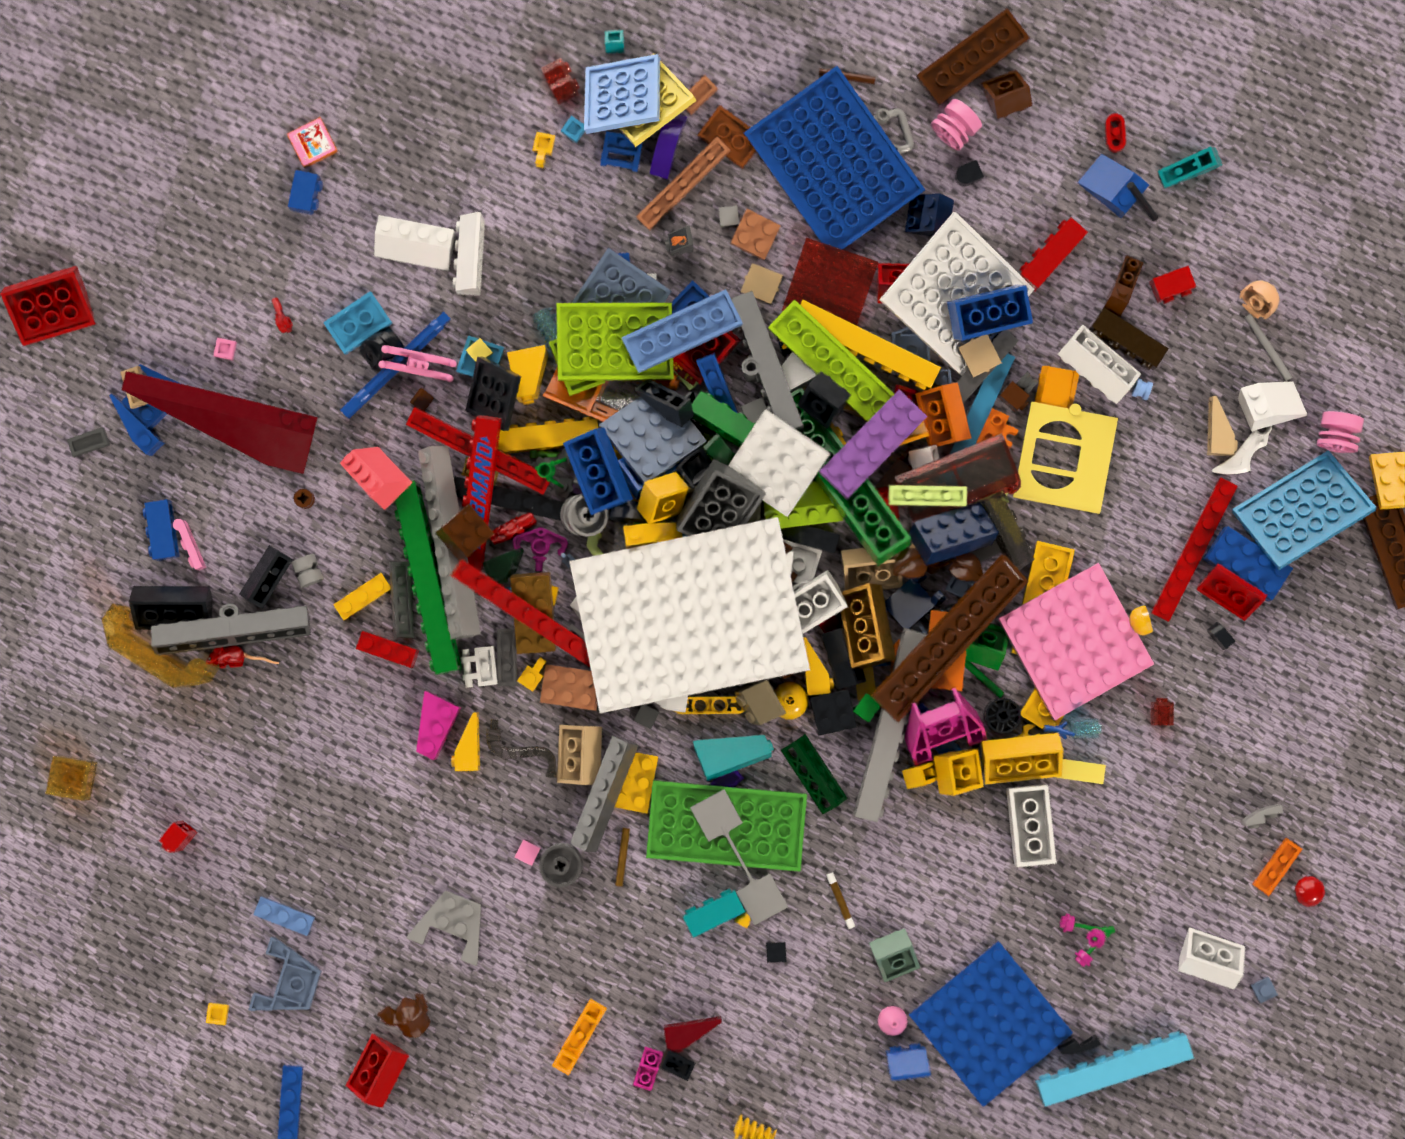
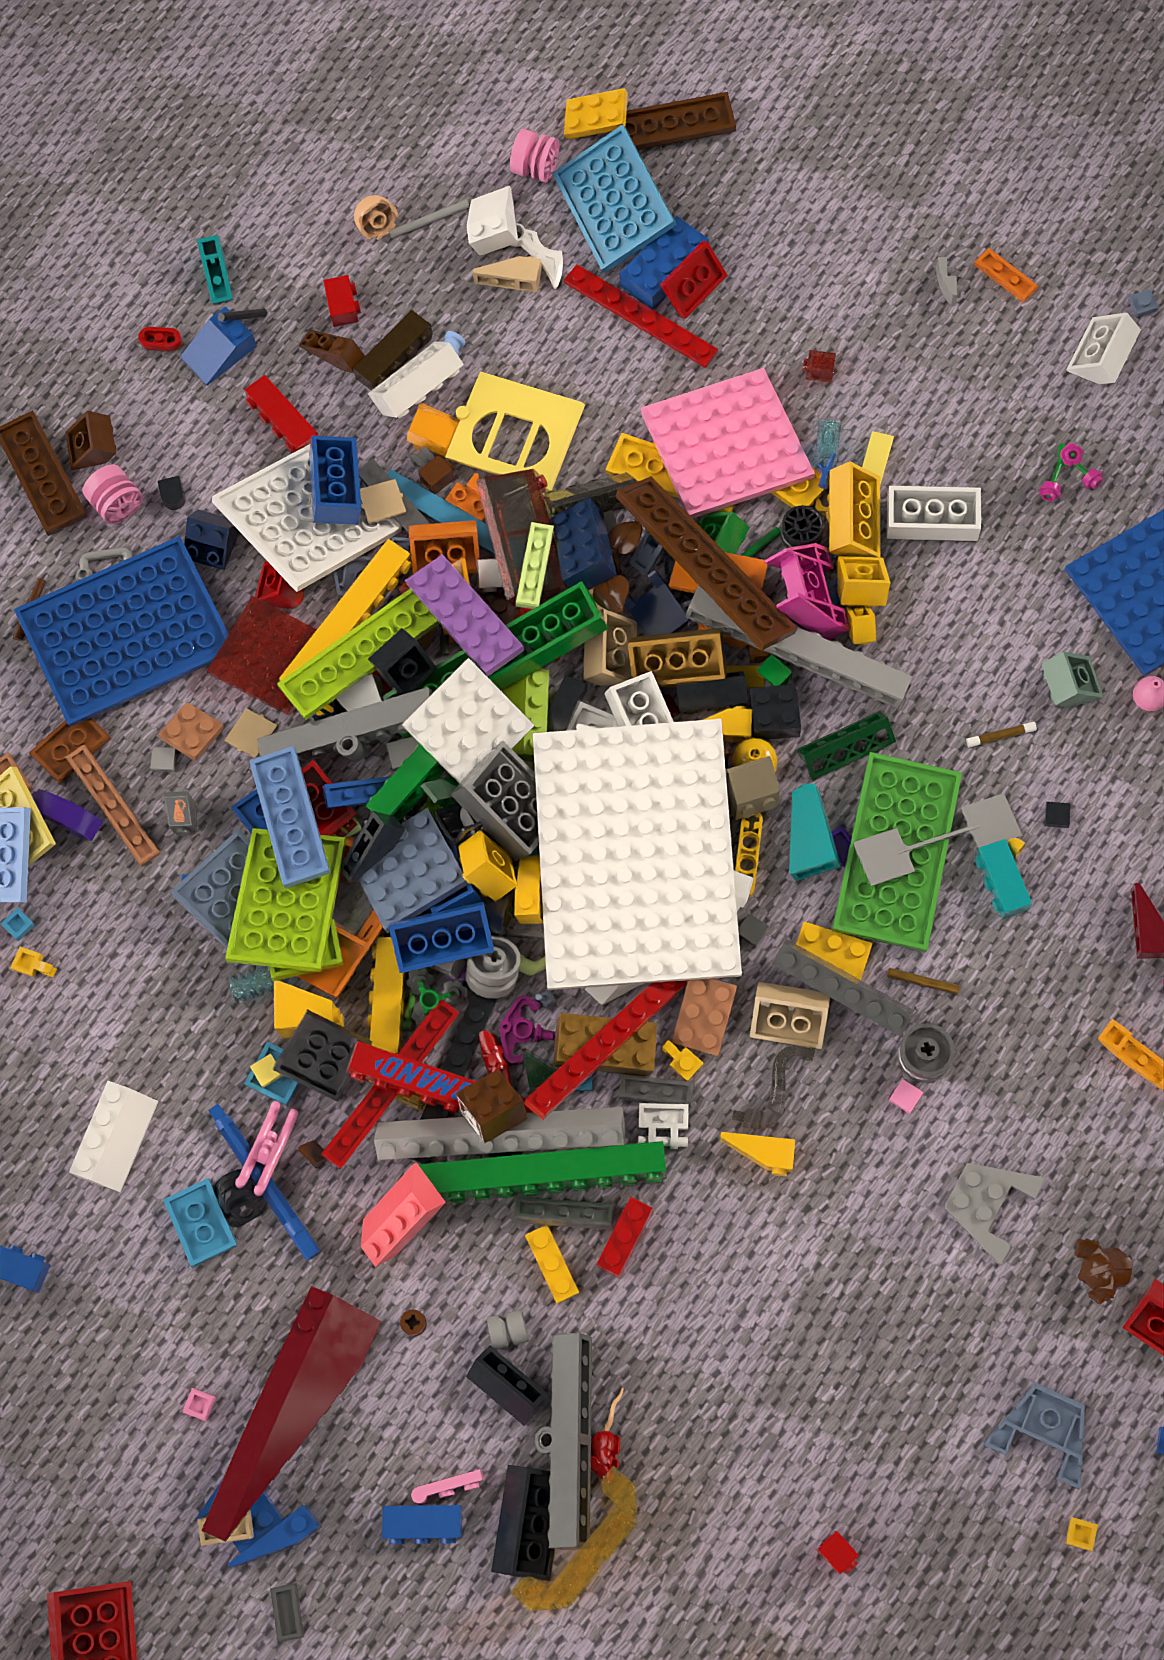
camera: 80 degrees left, 15 degrees down
(283, 323) = (181, 1319): red plate -> none
(284, 916) = (957, 1425): medium blue plate -> none
(435, 724) = (729, 1188): dark pink wedge -> none
(469, 254) = (142, 1066): white slope -> none
(620, 144) = (50, 870): blue plate -> none
(1140, 621) = (713, 374): yellow hair -> none
(1221, 636) = (741, 298): black piece -> none
(1309, 891) = (1036, 245): red hair -> none

